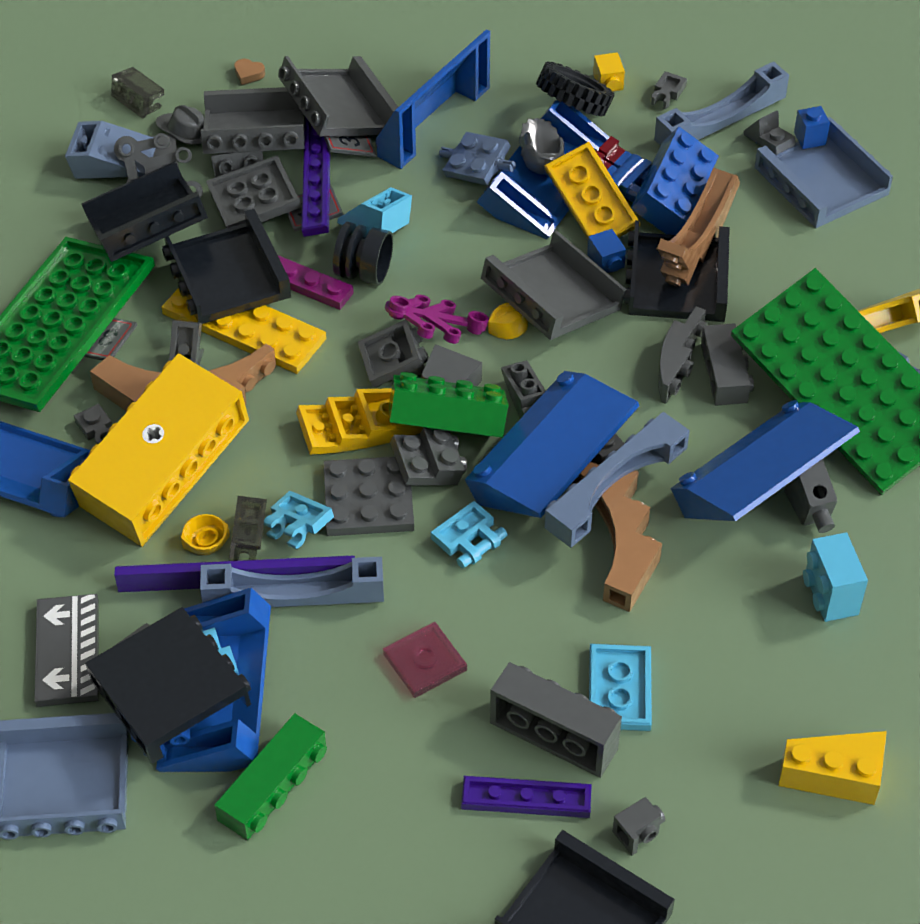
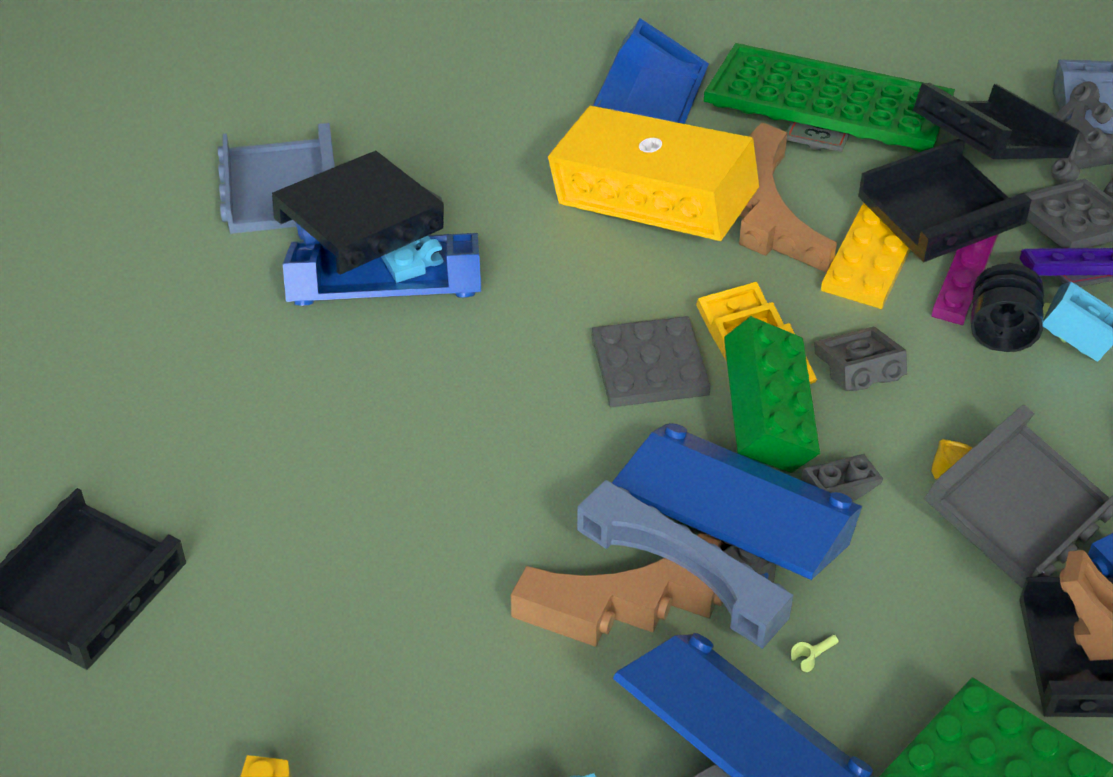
camera: 85 degrees right, 5 degrees down
(64, 642) = (442, 163): dark grey tile -> none
(186, 340) = (818, 192): dark grey slope -> none
(188, 575) = (523, 269): dark purple tile -> none
(204, 534) = (570, 237): yellow hat -> none
(247, 527) = (579, 258): clear smoke hinge -> none
(271, 777) = (273, 314): green brick -> none
(302, 515) = (602, 301): medium azure plate -> none
(350, 583) = (507, 314): sand blue arch -> none
(425, 659) = (427, 426): clear pink tile -> none
(429, 457) = (700, 397): dark grey plate -> none
(436, 315) = (921, 343): magenta plant -> none
(452, 366) = (843, 410): dark grey torso -> none
(463, 528) = (606, 440): medium azure plate -> none
(526, 796) = (245, 527): dark purple tile -> none
(555, 719) = (325, 528): dark grey brick -> none
(622, 682) = (394, 606): medium azure tile -> none
(638, 824) = (192, 621): dark grey brick -> none
(677, 353) = (939, 640): dark grey slope -> none
(726, 365) = (912, 703): dark grey brick -> none

